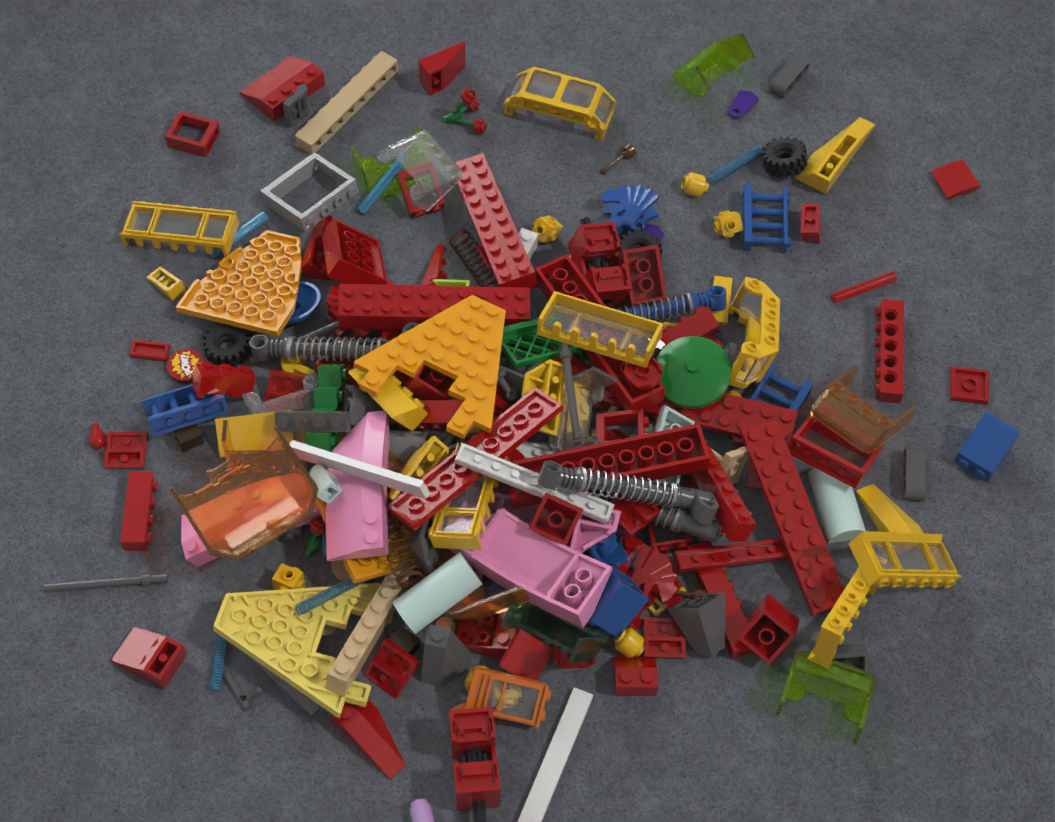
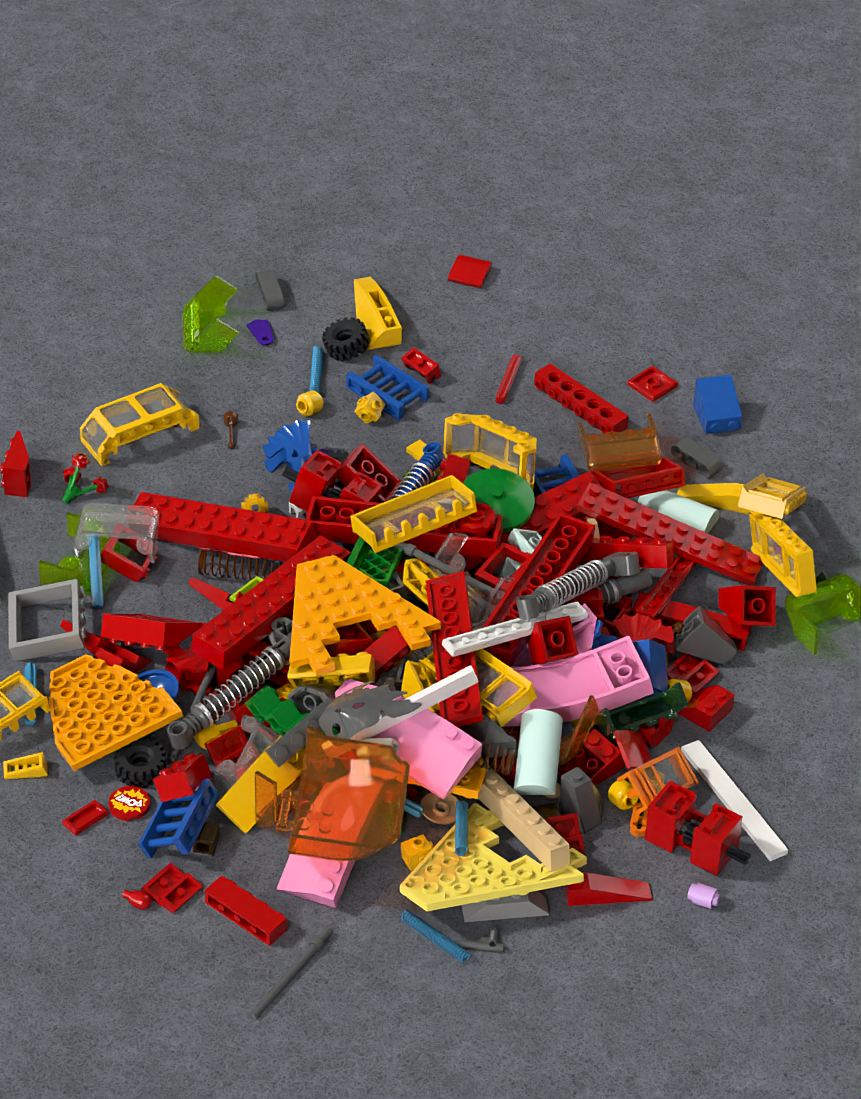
camera: 50 degrees left, 15 degrees down
(150, 656) = (396, 977): red slope -> none
(344, 443) = (355, 720): none -> dark grey piece

